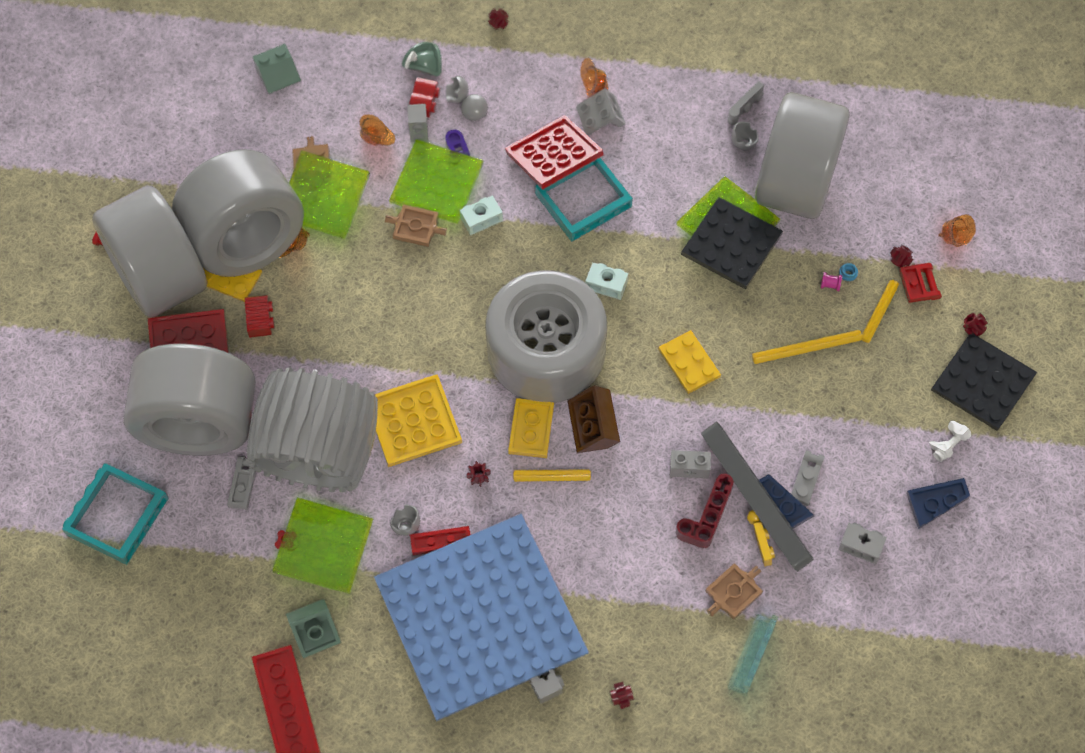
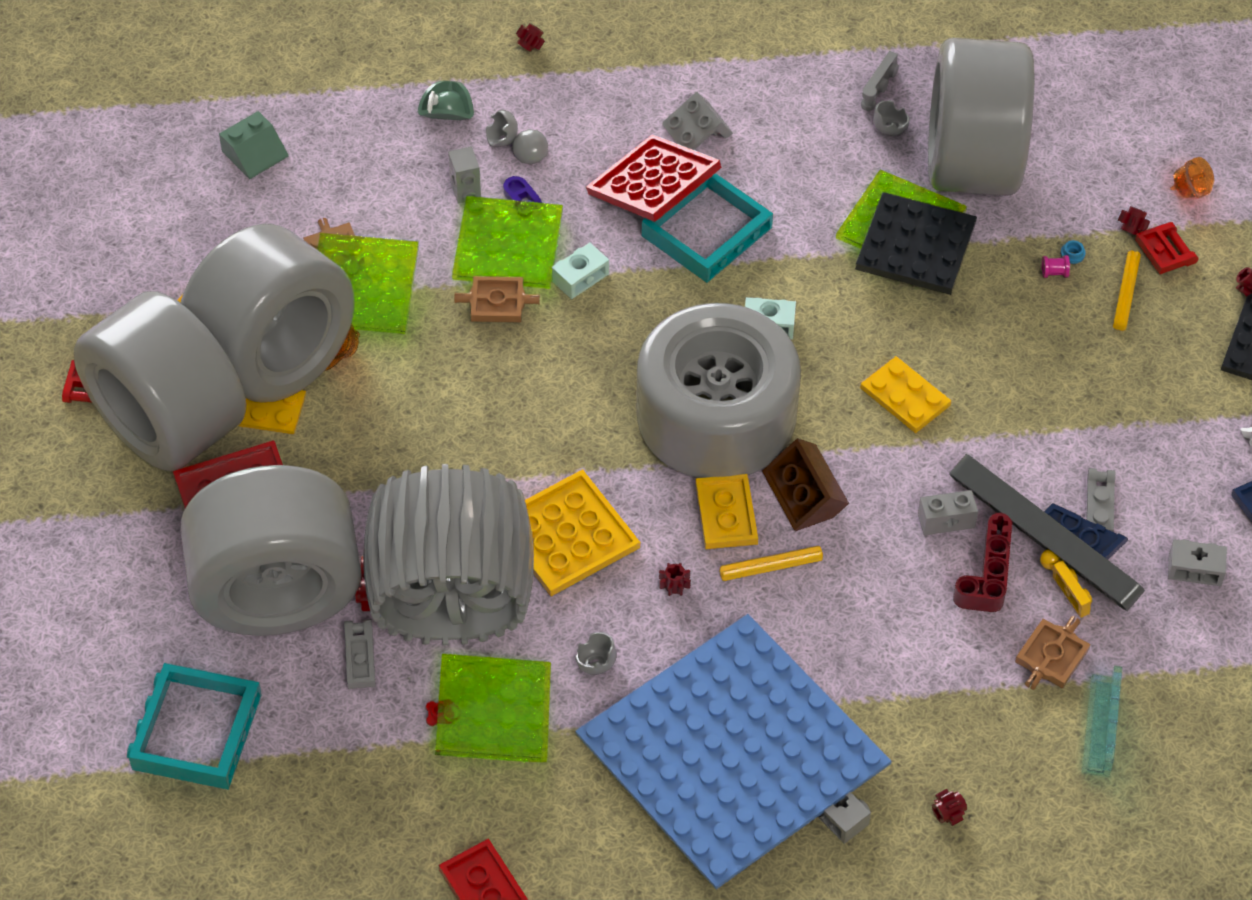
camera: 15 degrees left, 10 degrees down
(258, 316) = (319, 445): red brick -> none
(313, 628) = (512, 812): sand green slope -> none
(374, 131) = (408, 197): clear orange piece -> none
(425, 92) = (460, 136): red brick -> none
(430, 541) = (634, 674): red plate -> none
(592, 77) = (673, 83): clear orange piece -> none
(807, 346) = (1049, 348): yellow axle -> none

